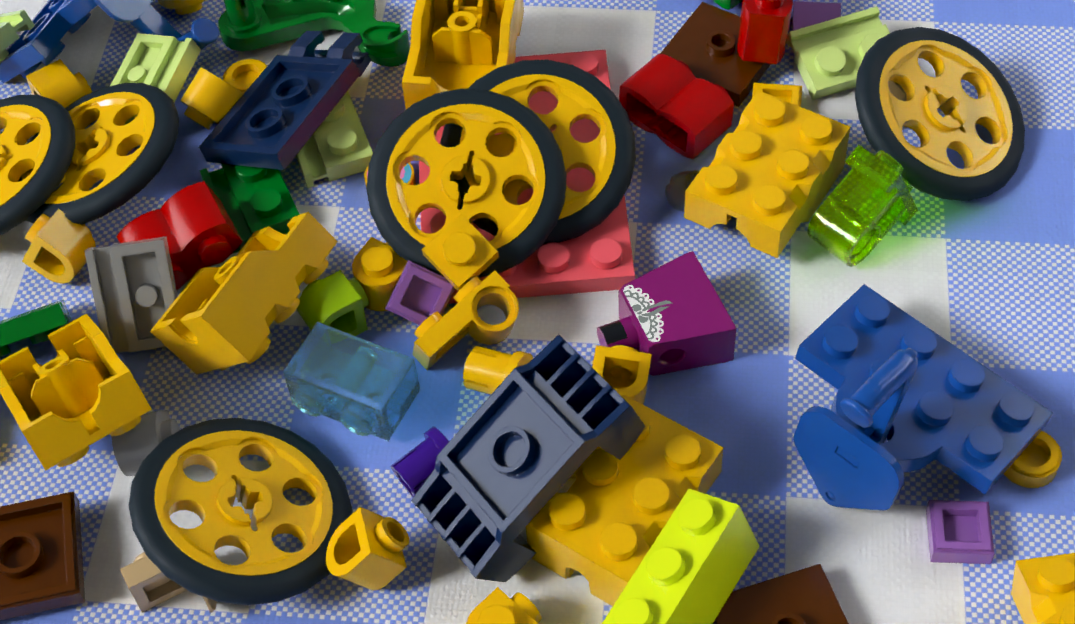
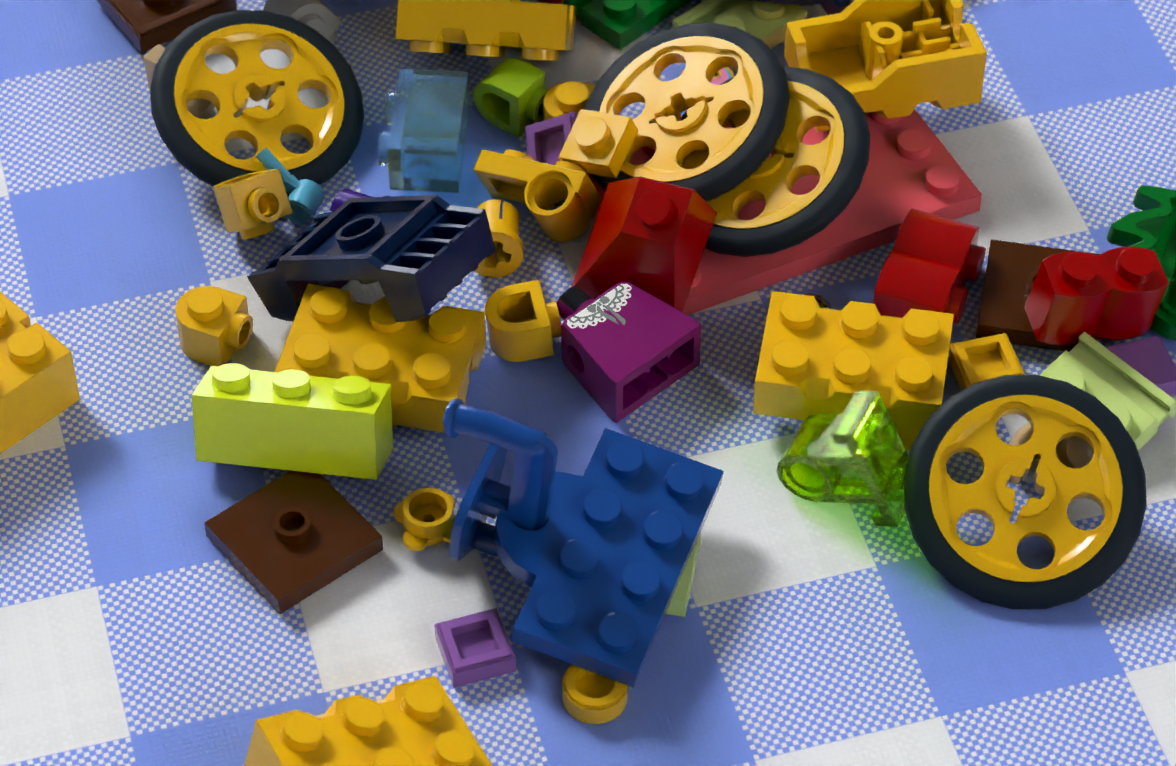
camera: 65 degrees right, 5 degrees down
(369, 500) = (304, 195): none -> medium azure hand
(582, 264) = (646, 237): none -> red slope
(810, 509) = (425, 506): none -> yellow plate

